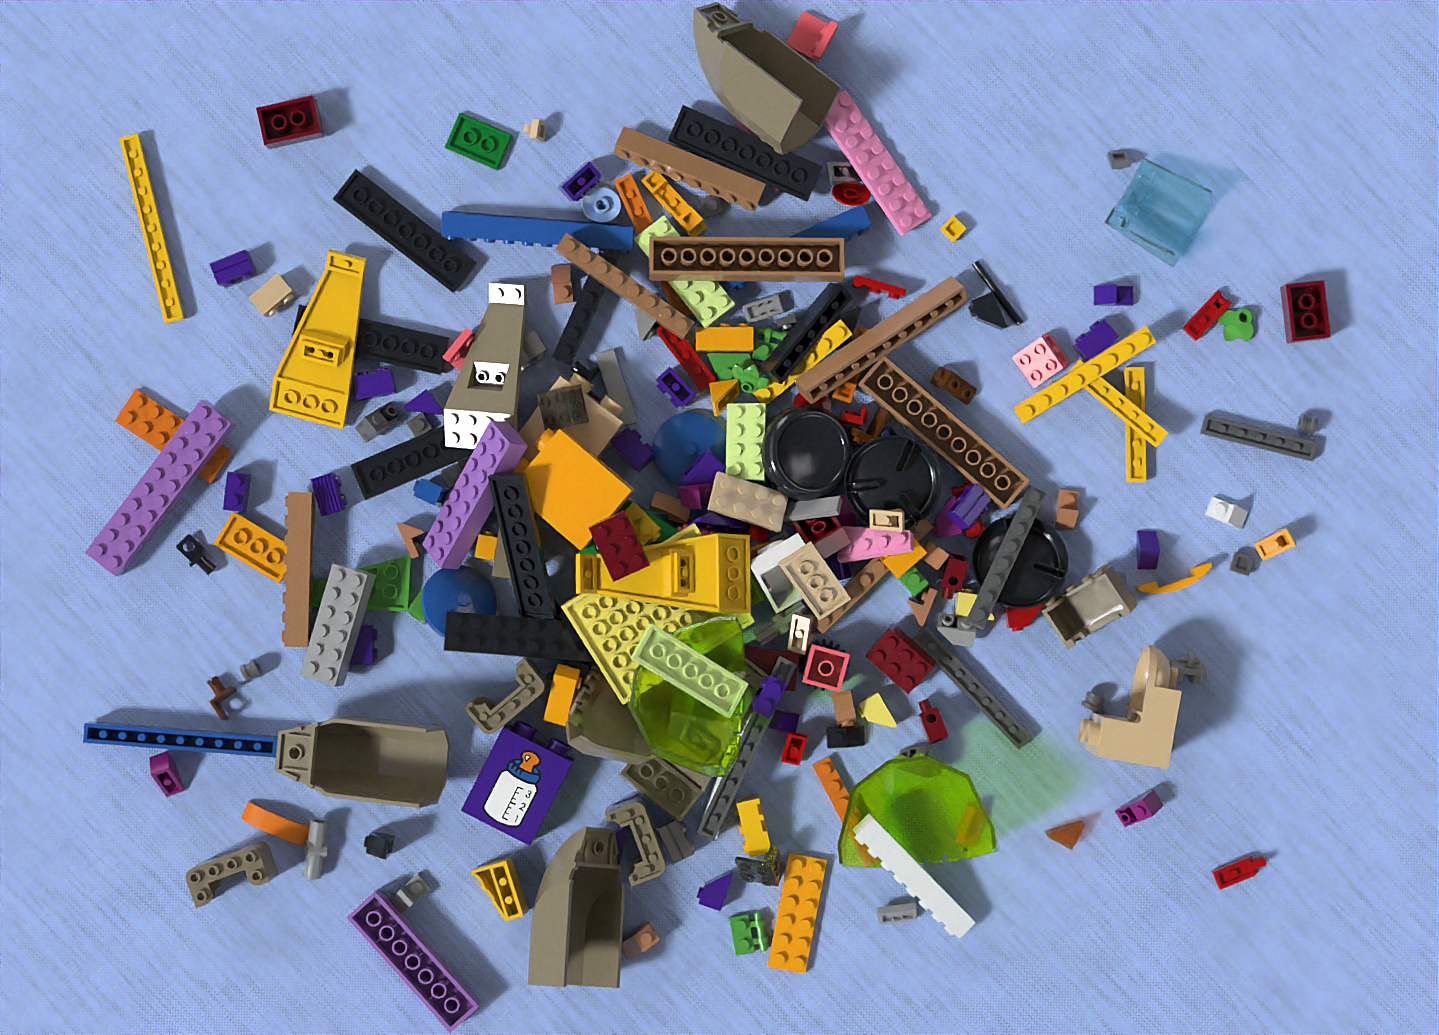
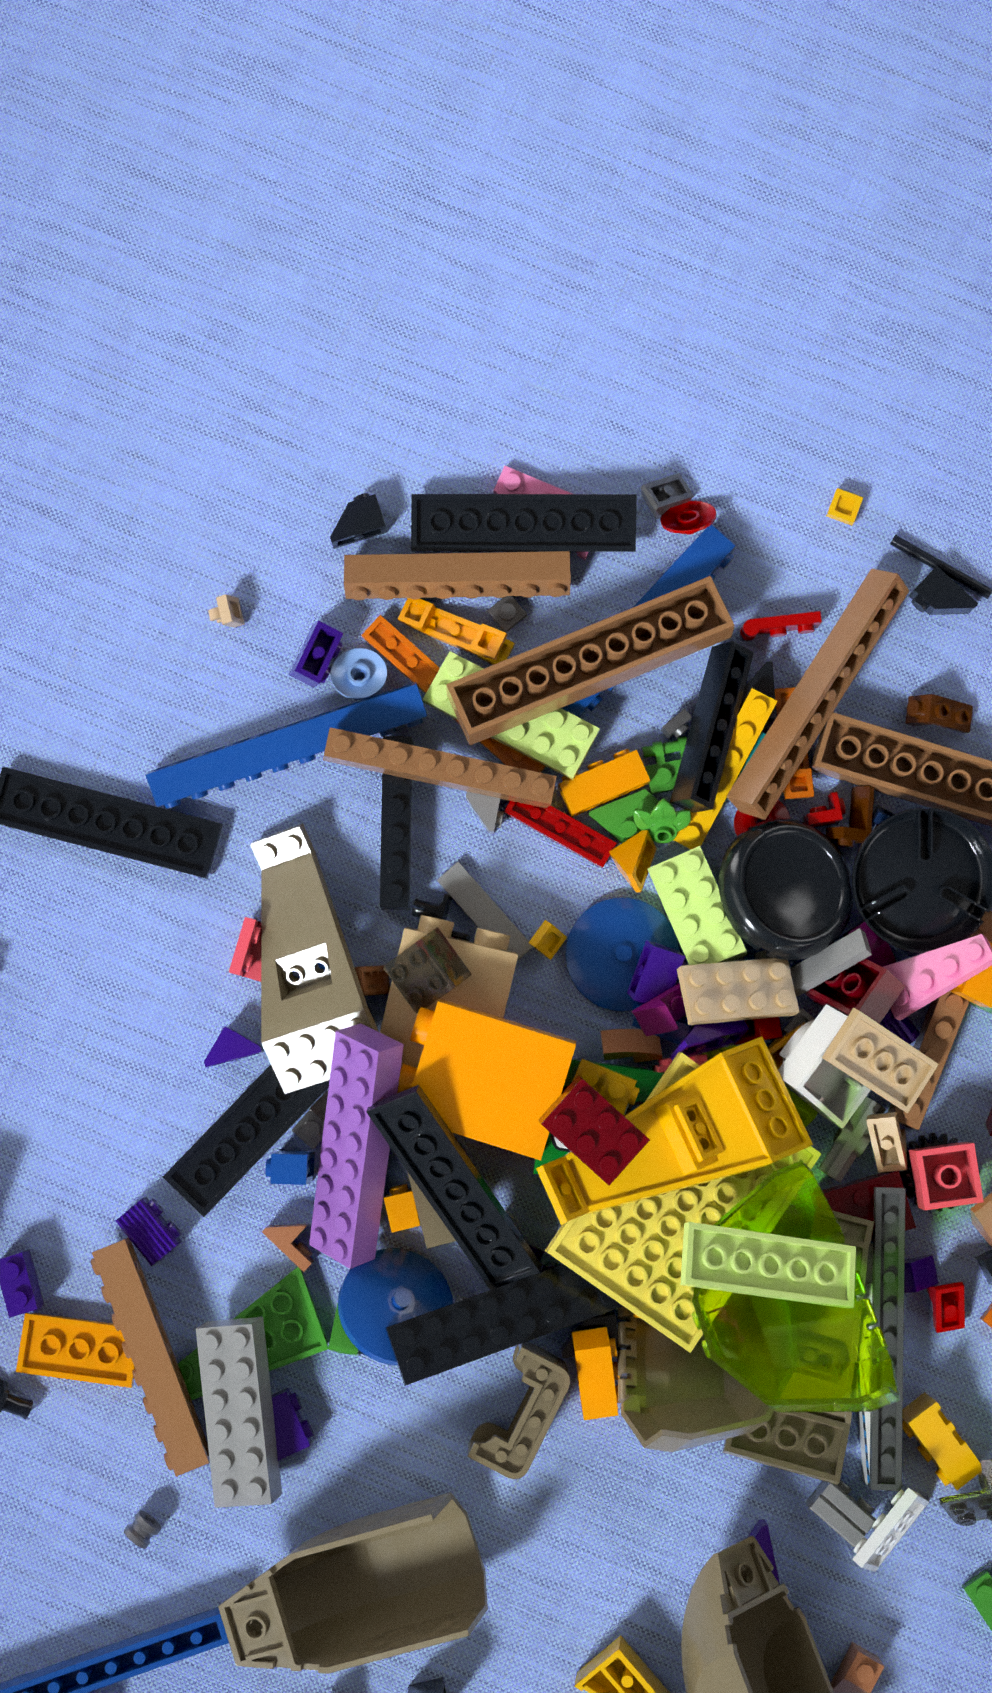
camera: 25 degrees left, 5 degrees down
(221, 694) = (113, 1581): reddish brown bracket -> none
(313, 382) = (65, 1083): yellow wing -> none
(374, 384) = (150, 1050): dark purple brick -> none
(377, 422) = (176, 1100): flat silver slope -> none
(397, 345) = (118, 991): black plate -> none
(419, 425) = (235, 1080): flat silver plate -> none
(478, 141) = (155, 660): green tile -> none
(519, 782) = (589, 1526): dark purple brick -> none
(527, 399) = (373, 980): none -> nougat plate
(532, 349) = (349, 908): light grey brick -> none
(562, 284) = (350, 803): nougat slope -> none
(633, 449) = (545, 986): dark purple brick -> none
(642, 107) = (358, 521): none -> black slope
(647, 421) = (547, 939): none -> yellow plate
(652, 858) = (824, 1562): dark tan windscreen -> none
(675, 387) = (566, 877): dark purple brick -> none
(698, 861) = (889, 1529): none -> white plate
(715, 891) = (928, 1558): dark purple slope -> none
(762, 79) = (505, 413): dark tan windscreen -> none
(763, 309) = (637, 720): light grey plate -> none
(769, 696) = (889, 1250): dark purple brick -> none
(811, 36) = (543, 334): coral bracket -> none
(875, 165) = (699, 464): bright pink plate -> none
(887, 520) = (943, 932): tan slope -> none

